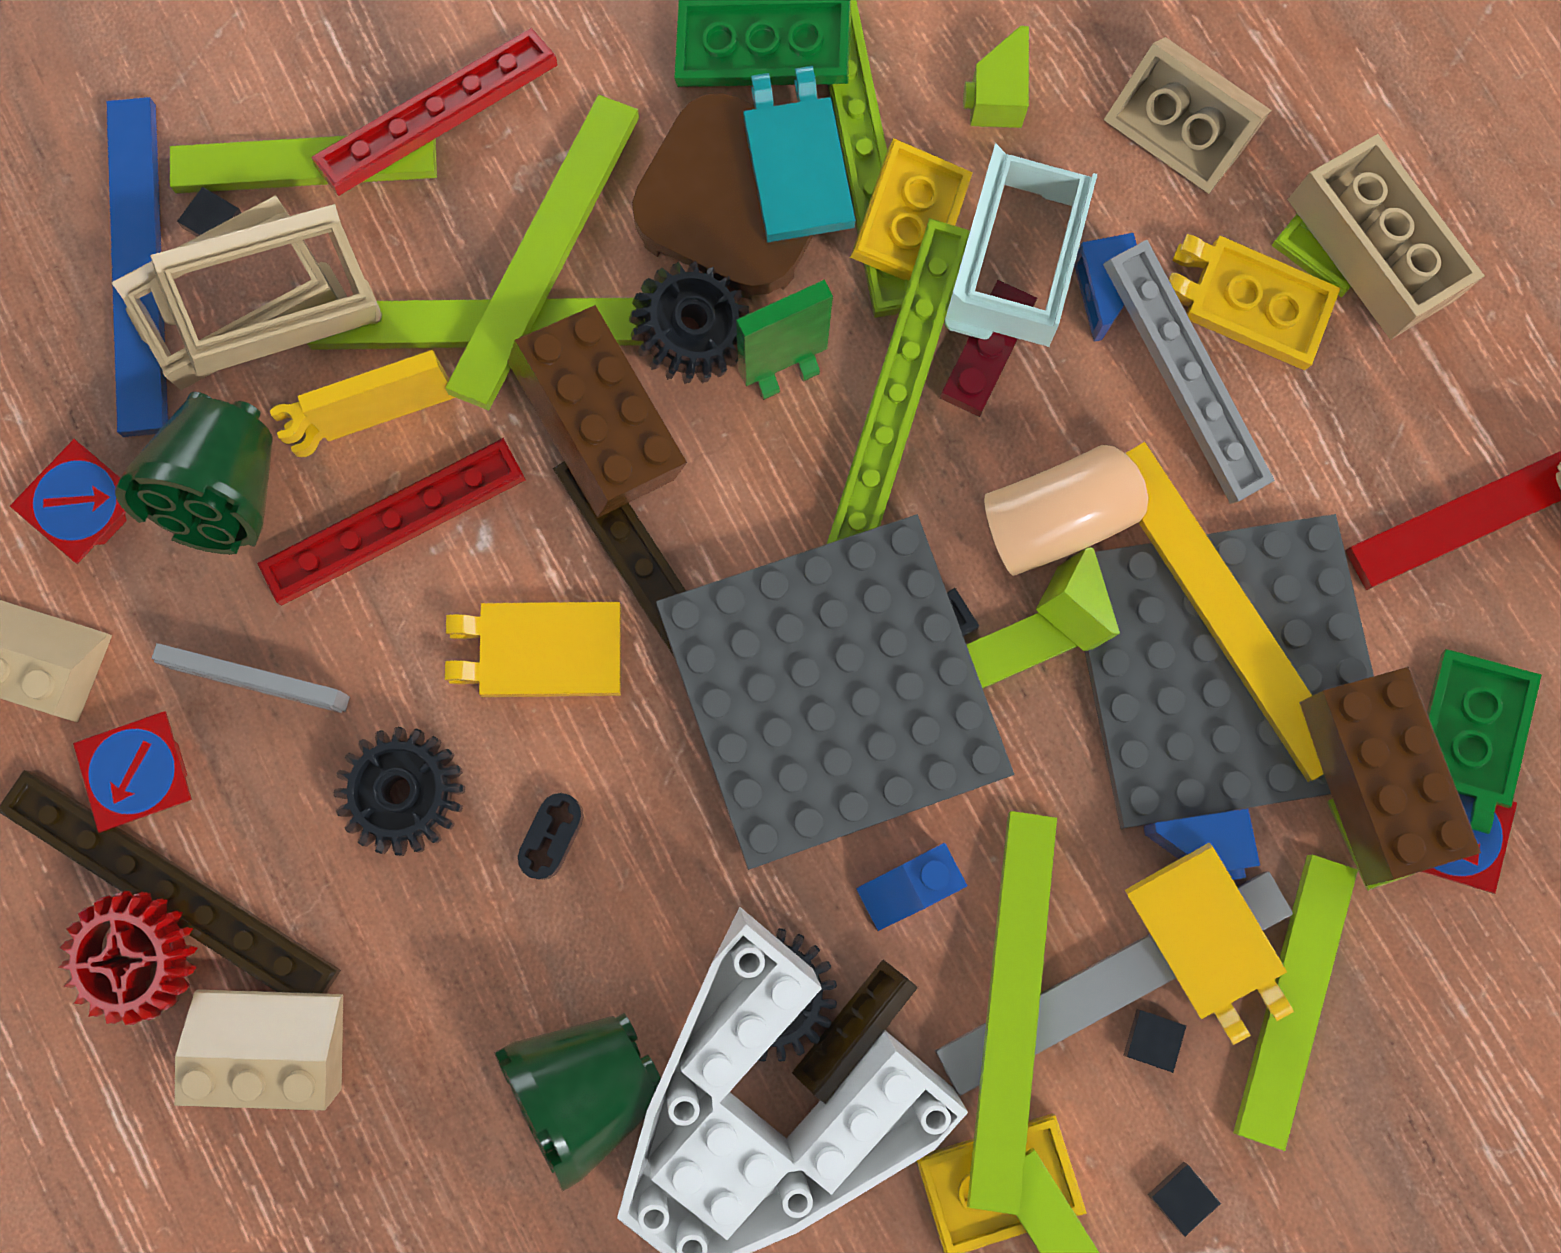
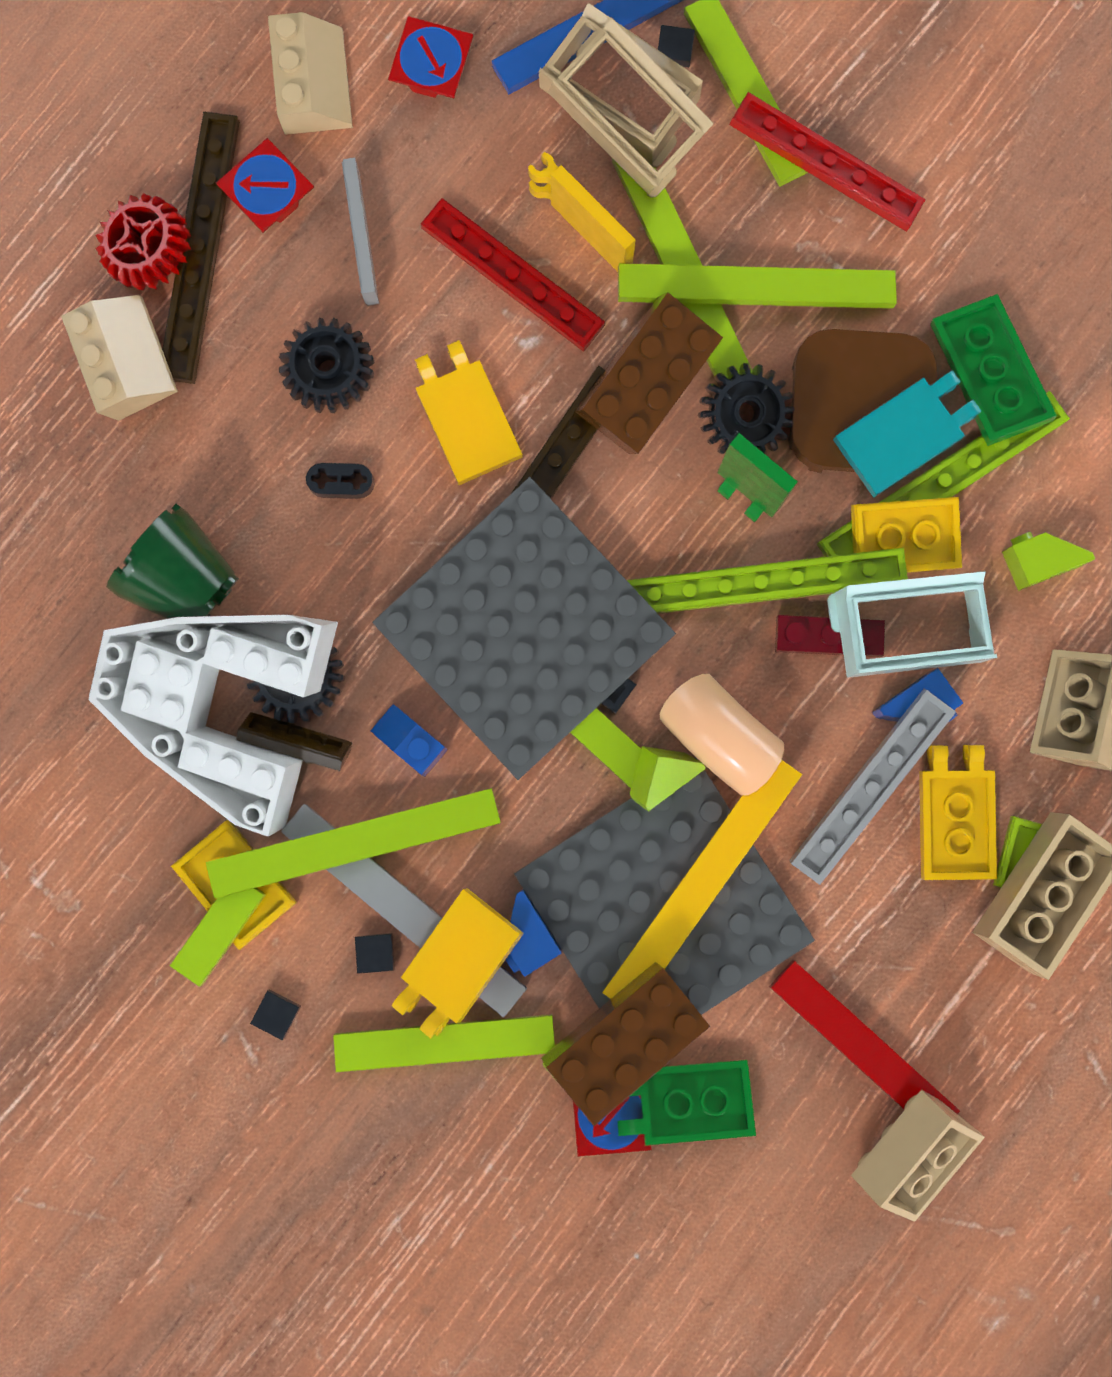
camera: 70 degrees right, 5 degrees up
(203, 476) = (483, 131): dark green cone -> none

